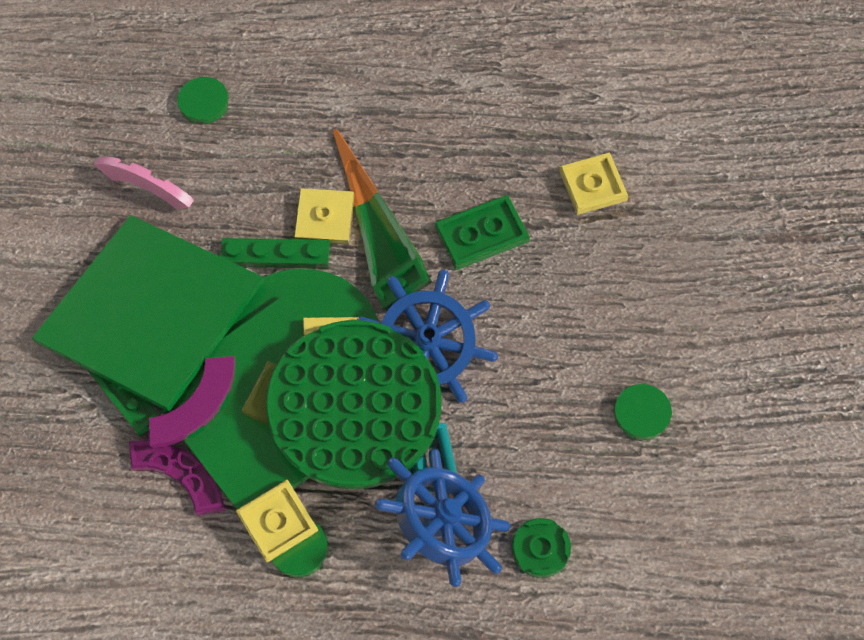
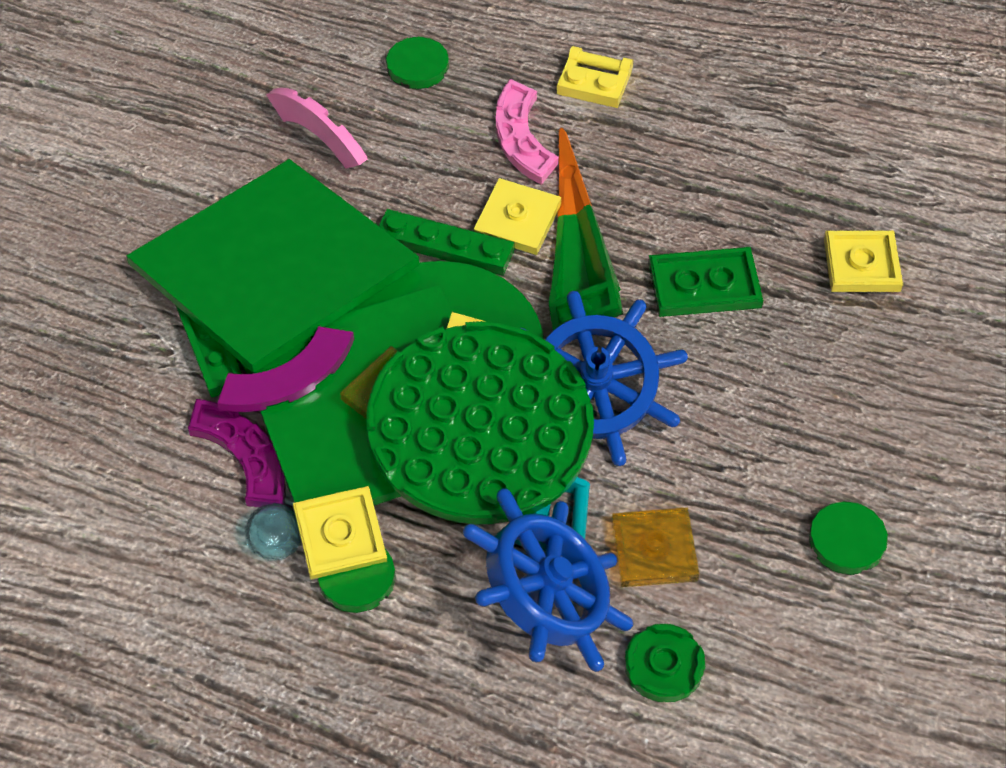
camera: 15 degrees right, 10 degrees down
(225, 533) = (272, 532): none -> clear light blue hair
(299, 144) = (514, 133): none -> bright pink tile
(346, 83) = (593, 84): none -> light yellow plate
(508, 460) = (655, 547): none -> clear yellow plate

